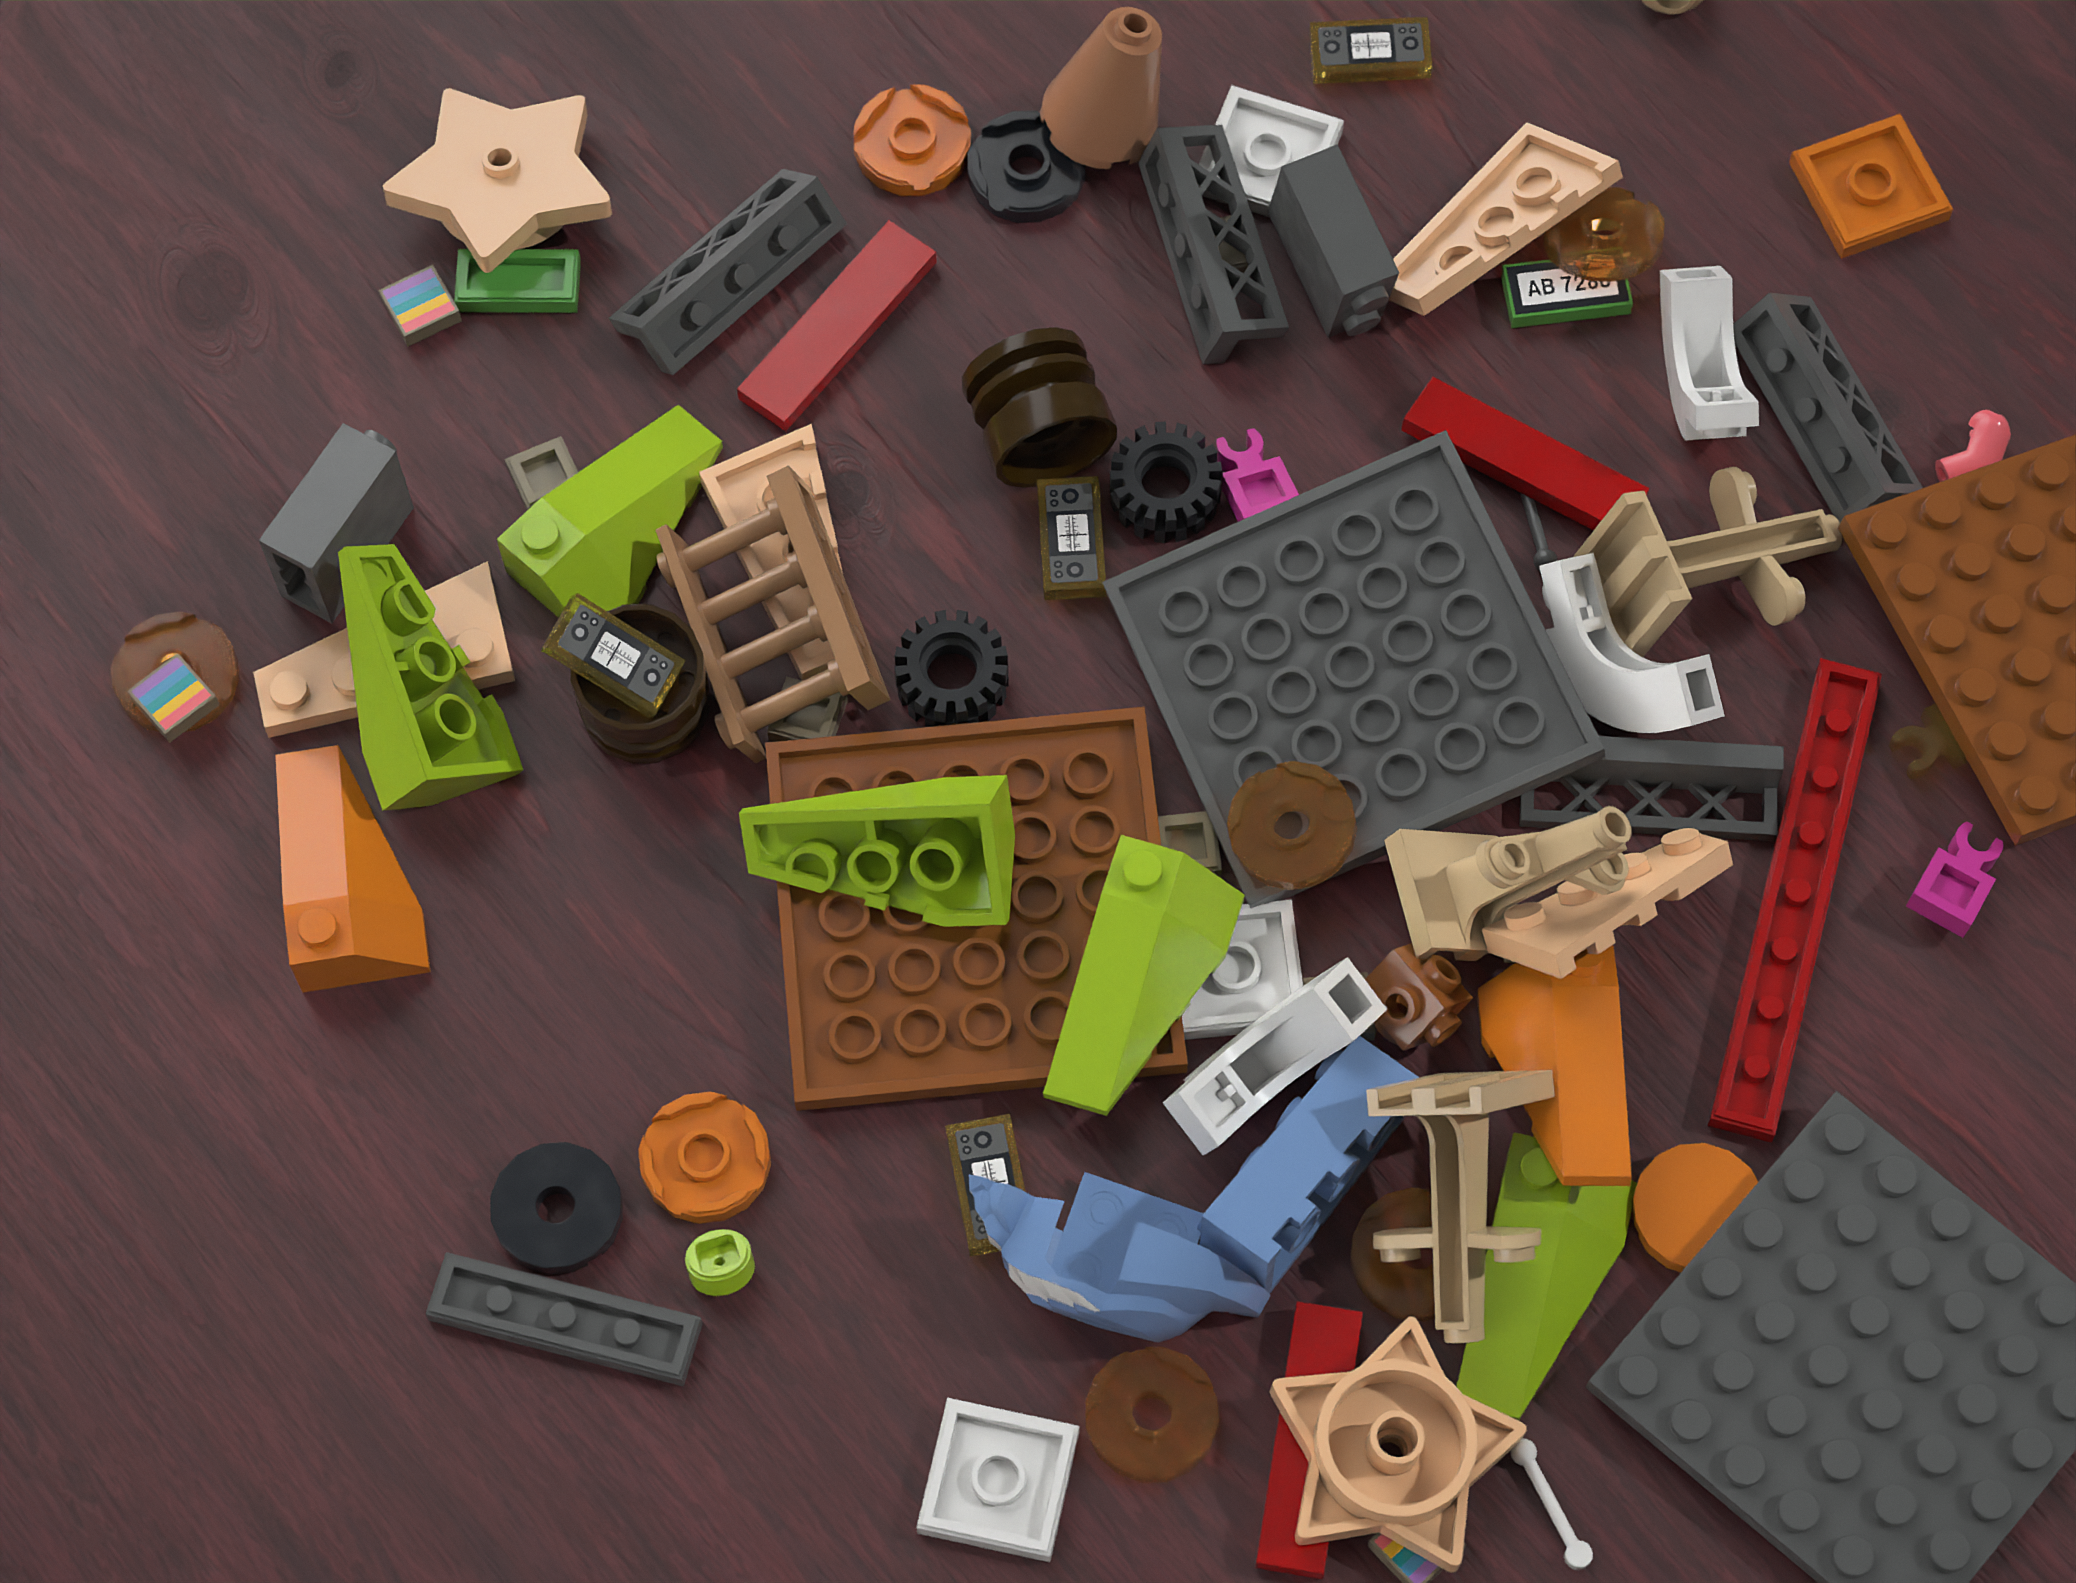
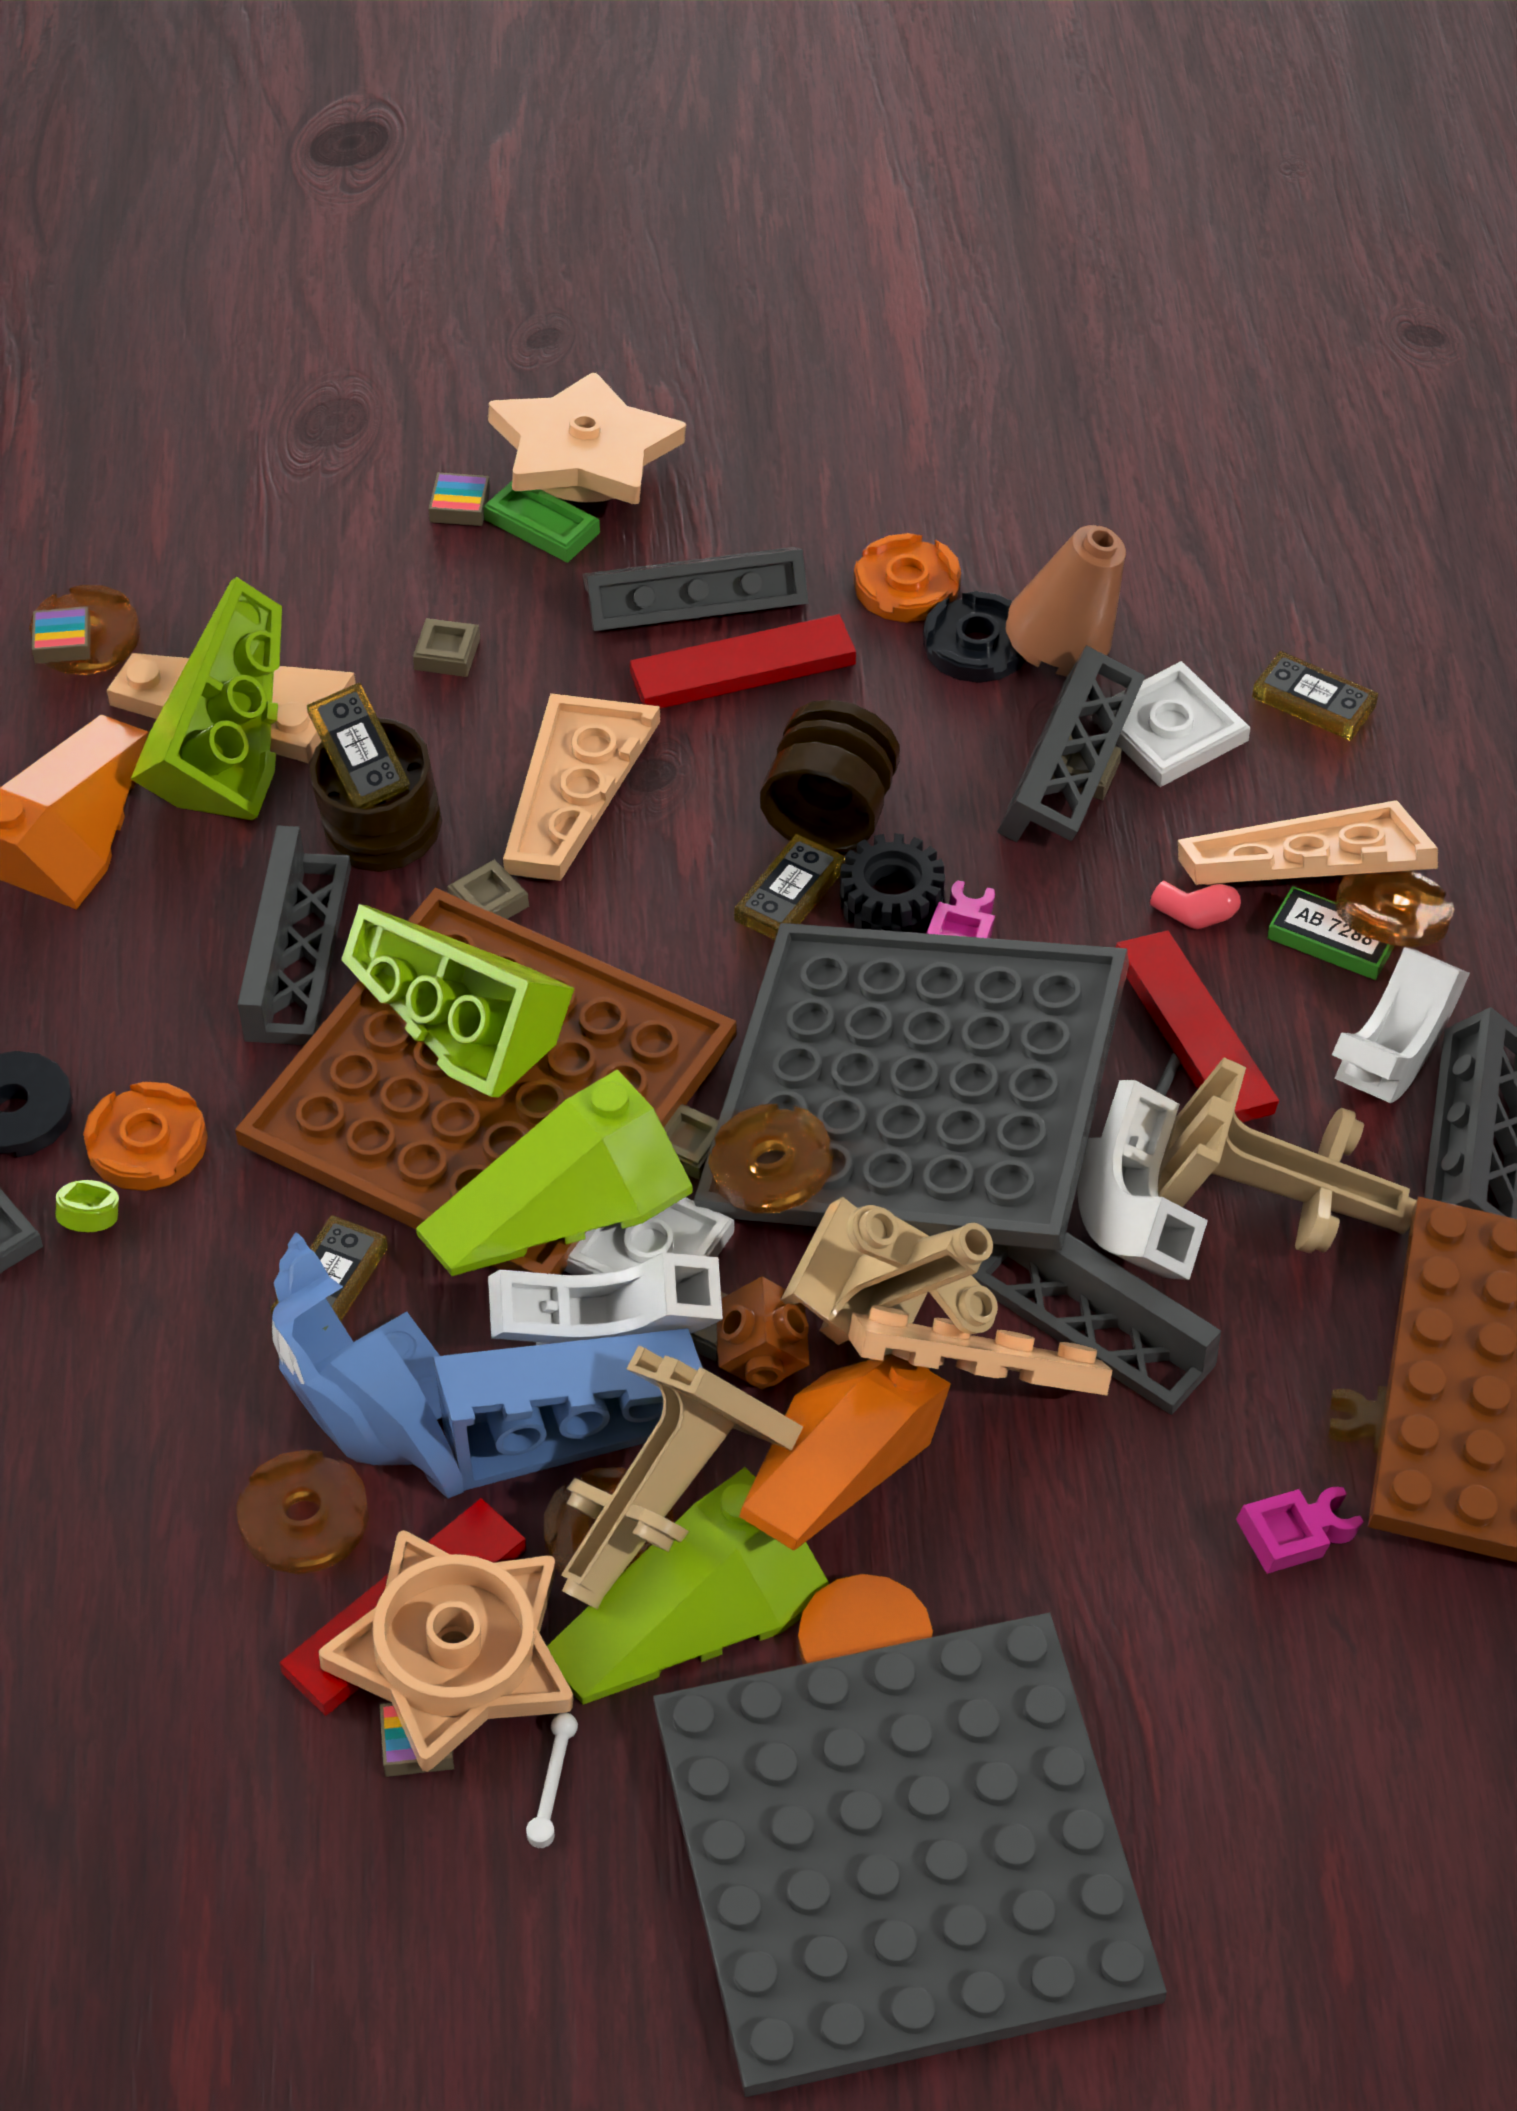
camera: 35 degrees right, 15 degrees down
(345, 499) = (281, 559): brick -> none
(600, 524) = (466, 689): lime wedge -> none
(654, 882) = (274, 931): none -> dark grey fence
(830, 619) = (546, 832): medium nougat fence -> none
(944, 638) = (618, 897): black tyre -> none
(998, 1480) = (148, 1483): white tile -> none
(1333, 242) = (1154, 784): dark grey brick -> none
(1438, 337) = (1197, 908): none -> coral arm
(1795, 901) = (1146, 1465): red tile -> none

